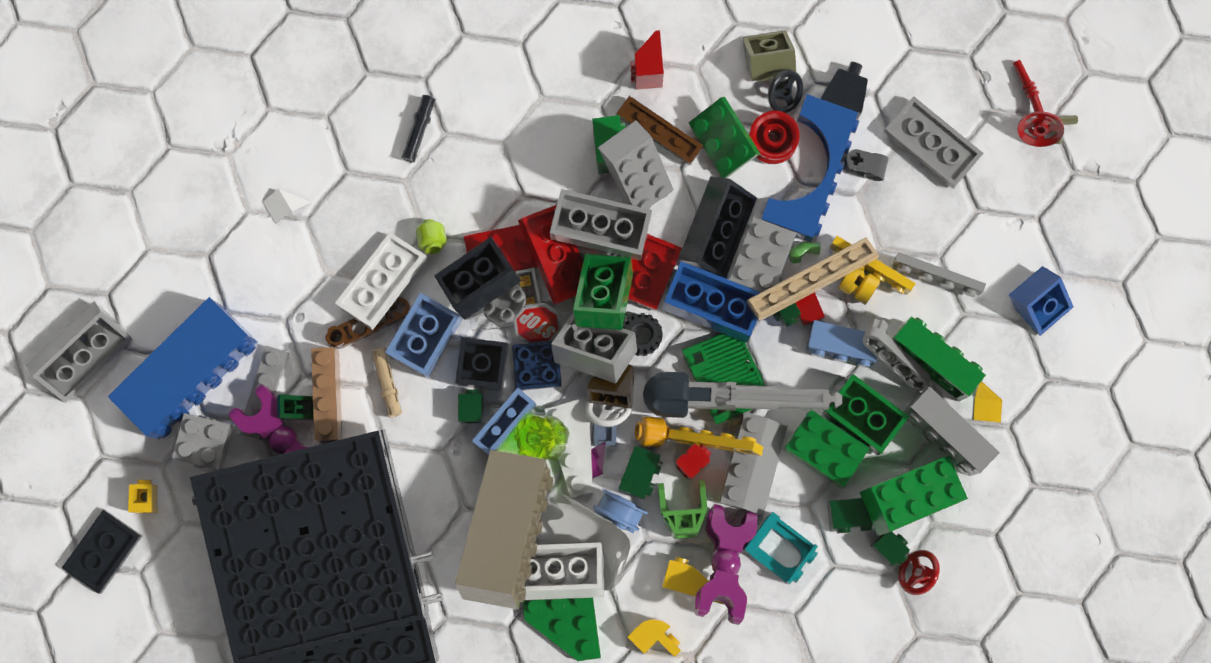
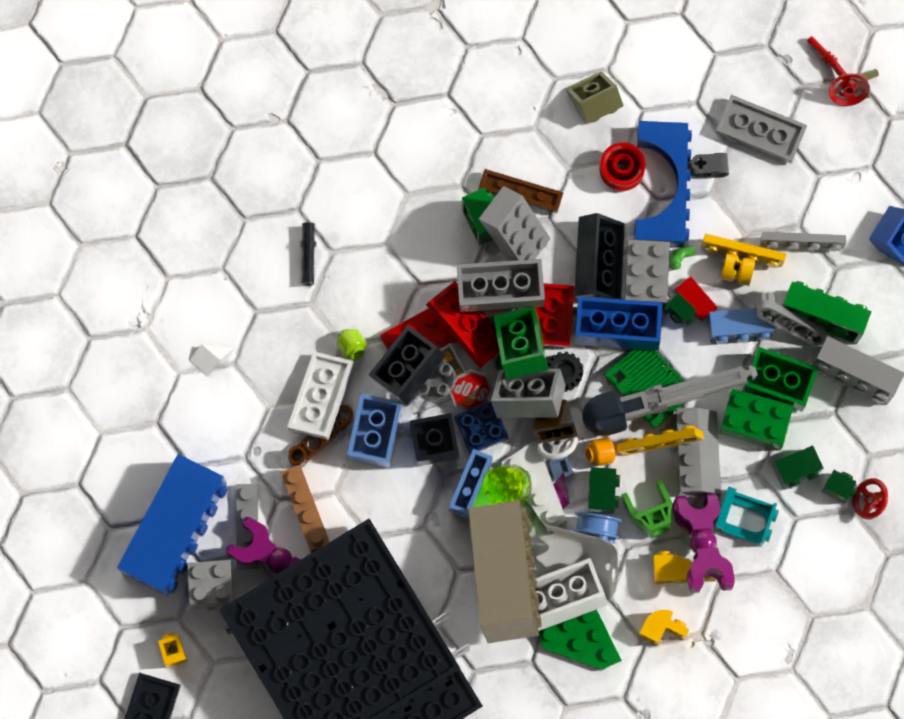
camera: 20 degrees left, 5 degrees down
(78, 352) = (71, 541): light grey slope -> none
(294, 407) = (283, 528): dark green slope -> none
(387, 384) = (359, 490): tan pin -> none
(470, 407) = (435, 480): dark green brick -> none
(648, 64) = (494, 138): red slope -> none
(693, 461) = (645, 465): red brick -> none
(724, 137) = (579, 180): green plate -> none
(783, 90) = (616, 123): black piece -> none
(812, 279) = (697, 276): tan tile -> none
(847, 88) = (672, 105): black torso -> none
(913, 495) = (844, 433): green brick -> none
(987, 405) = (881, 339): yellow sticker -> none

